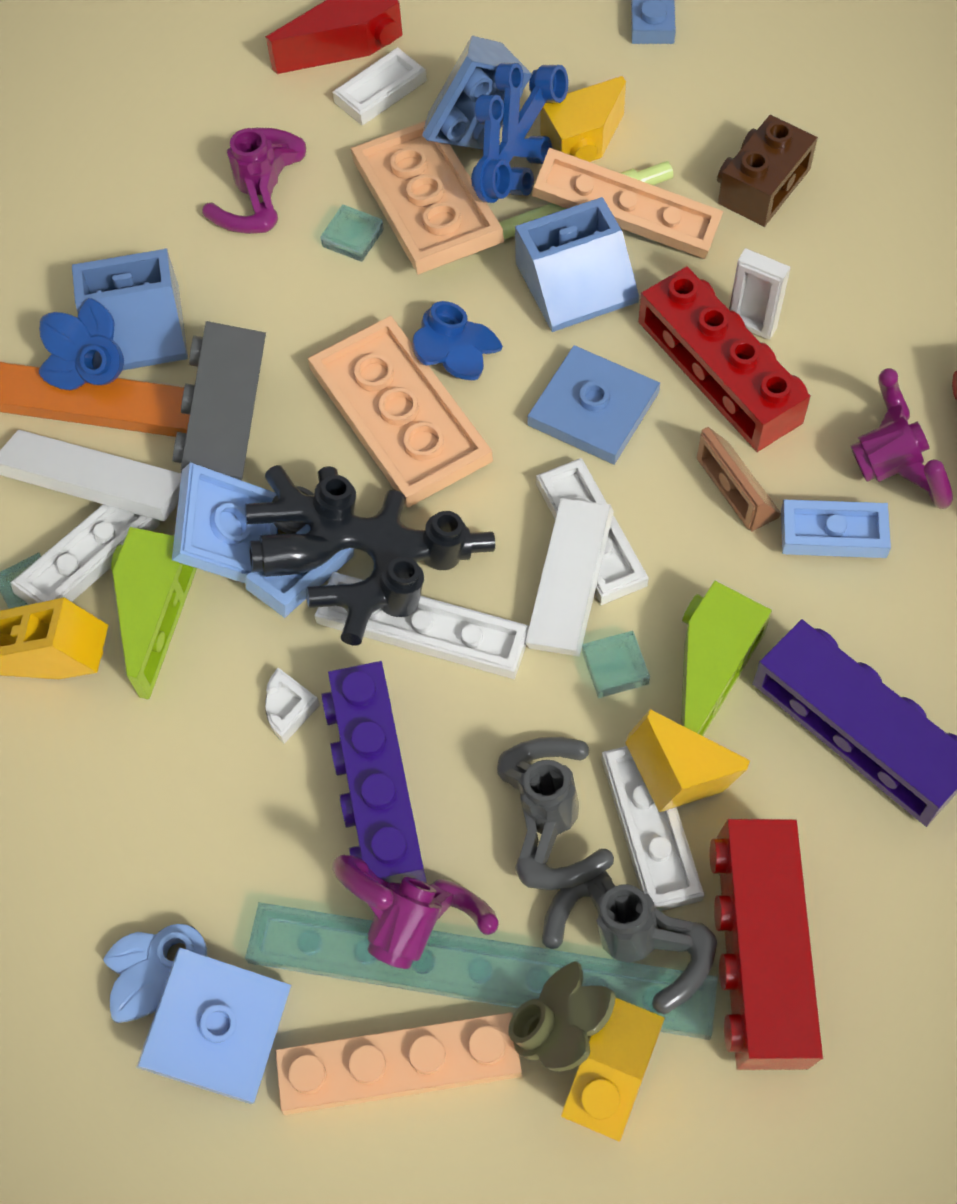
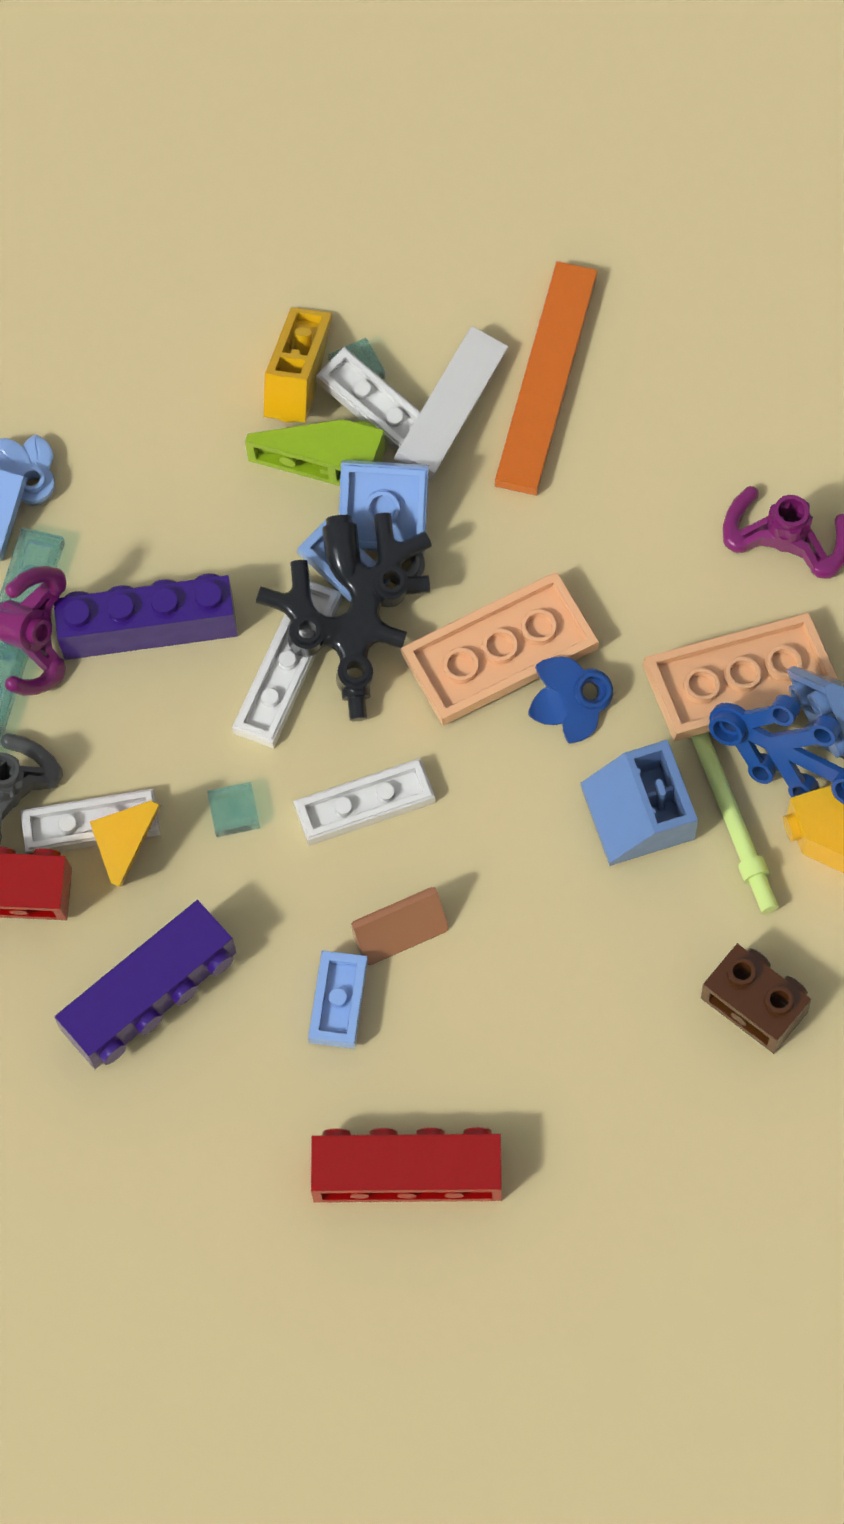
camera: 95 degrees right, 5 degrees up
(74, 344) = (572, 385): blue plate -> none
(143, 302) = (616, 425): medium blue slope -> none
(220, 399) = (504, 497): dark grey wedge -> none
(287, 704) = (227, 558): white tile -> none
(352, 233) = (714, 615): clear light blue tile -> none
(550, 809) = (107, 739): dark grey piece -> none
(569, 577) = (312, 774): white tile -> none
(593, 404) = (495, 815): medium blue plate -> none
(634, 204) = (714, 857): light nougat plate -> none
(717, 646) = (222, 879): lime slope -> none
(723, 358) = (529, 926): red brick -> none
(759, 292) = (581, 954): white tile -> none
(899, 447) = (411, 1065): magenta piece -> none

